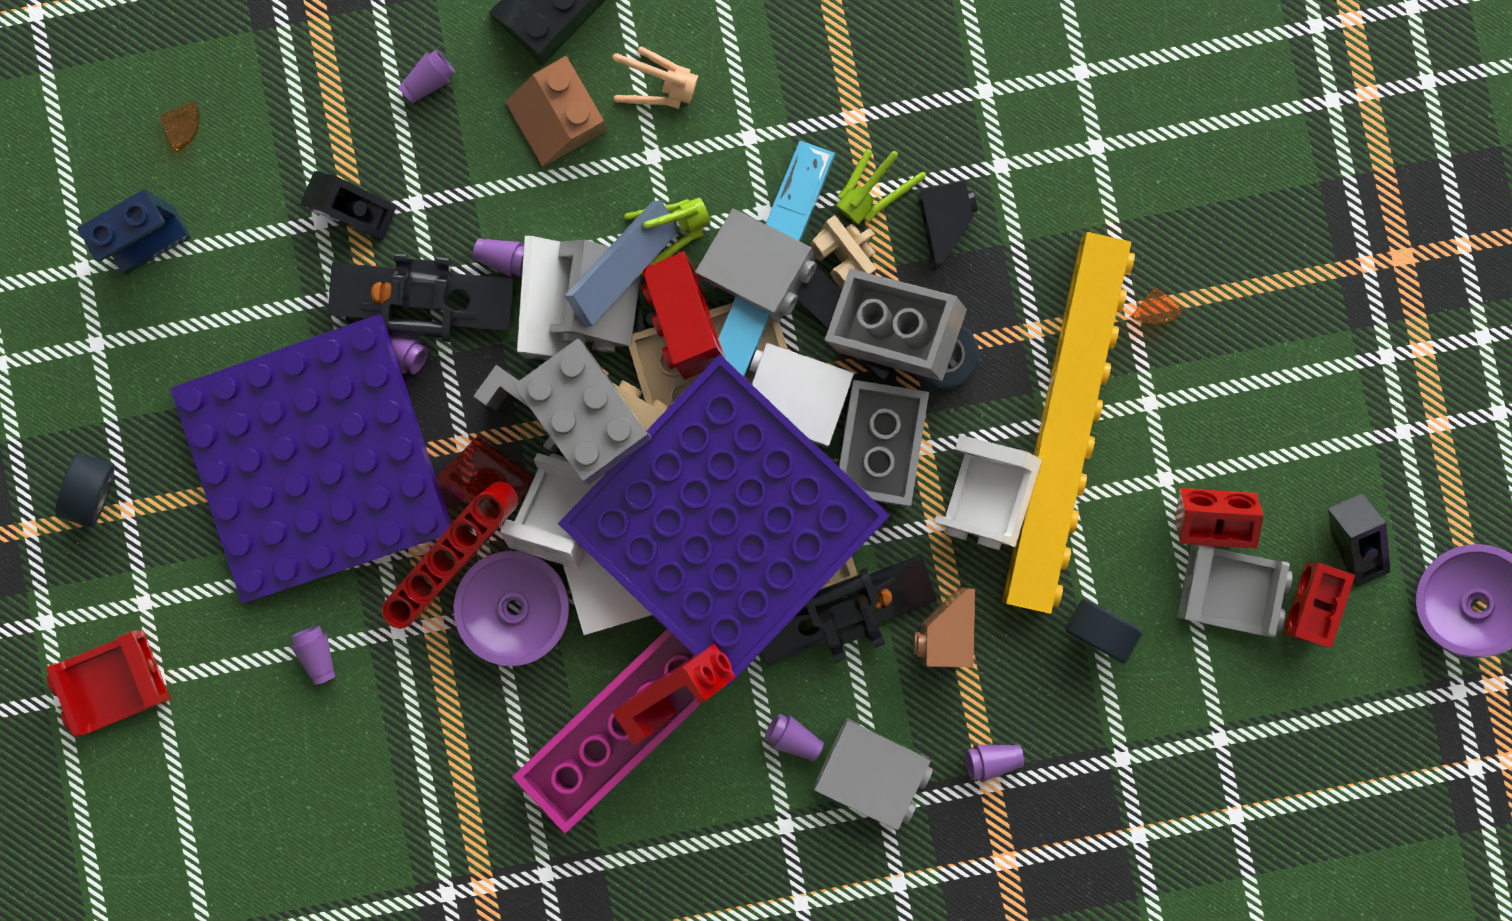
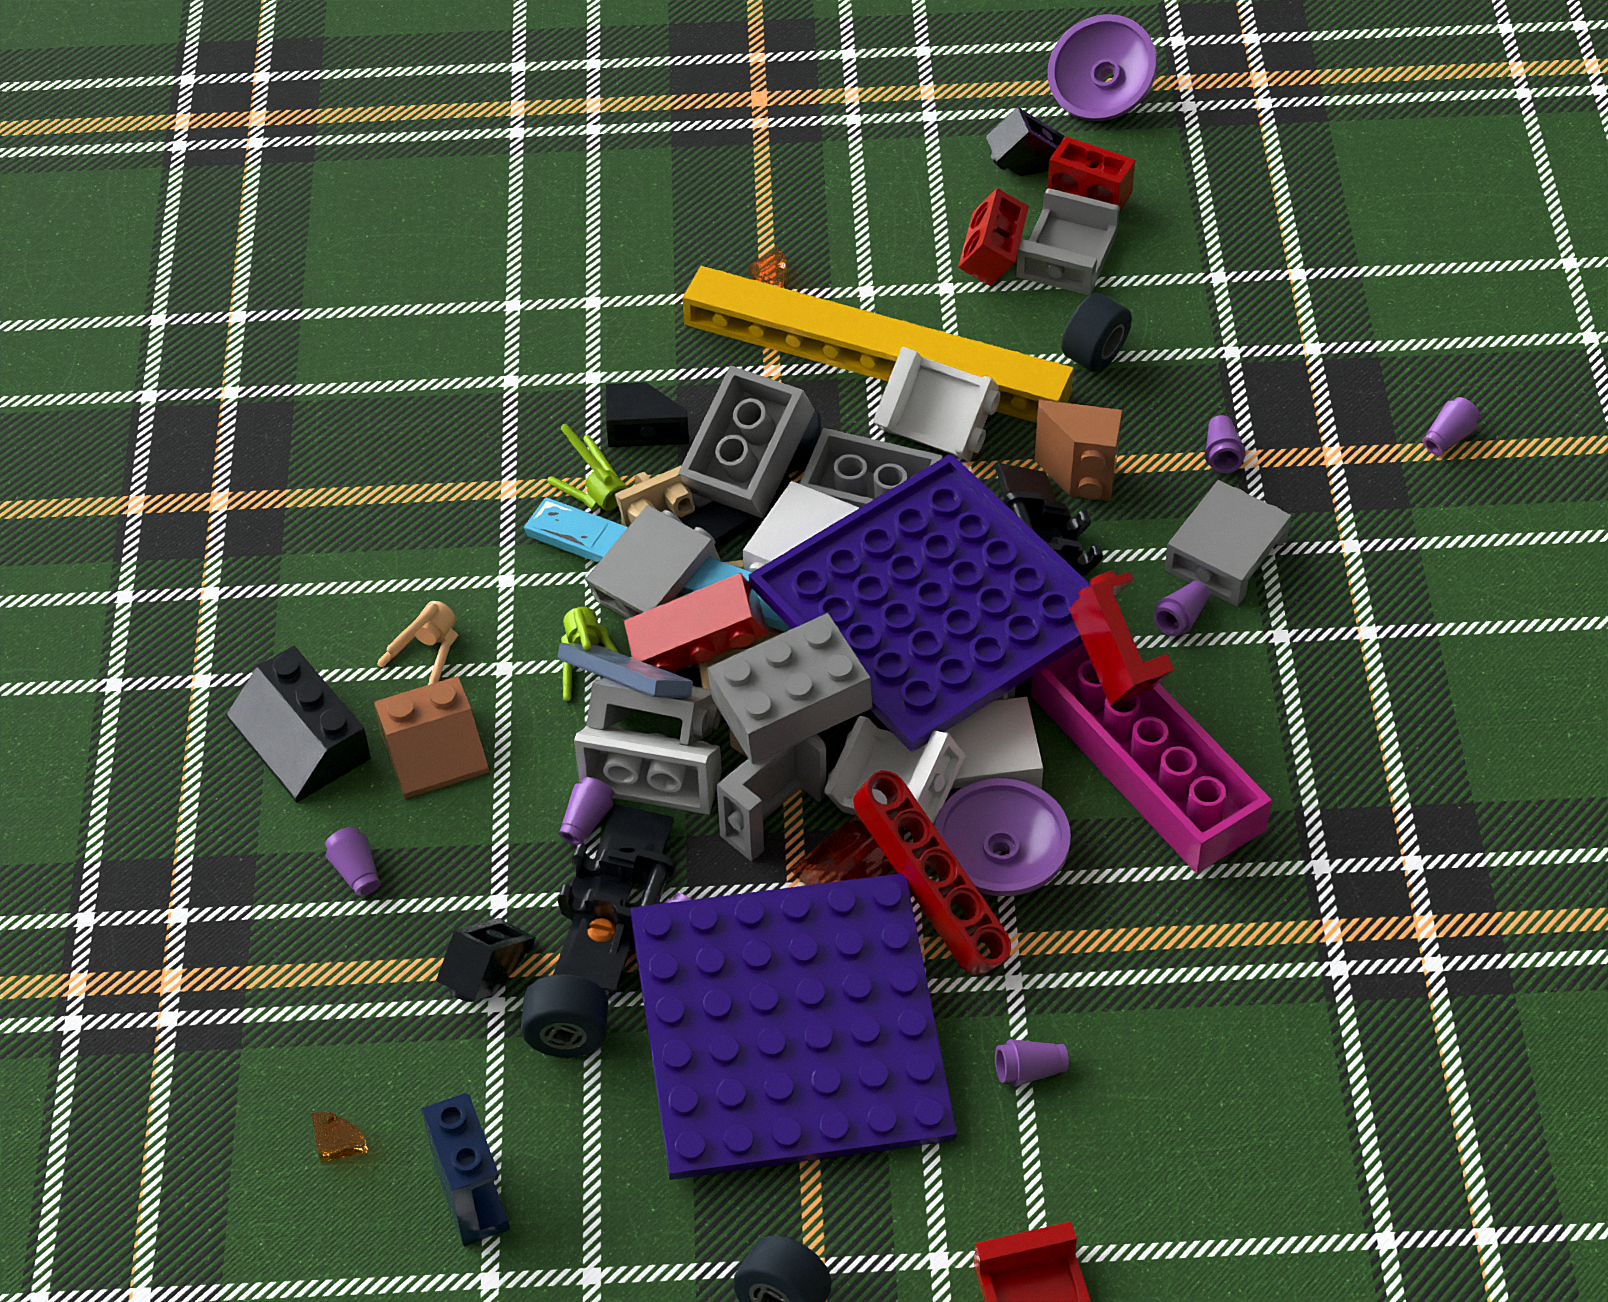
camera: 80 degrees left, 35 degrees down
(290, 280) = (564, 1016): none -> black wheel

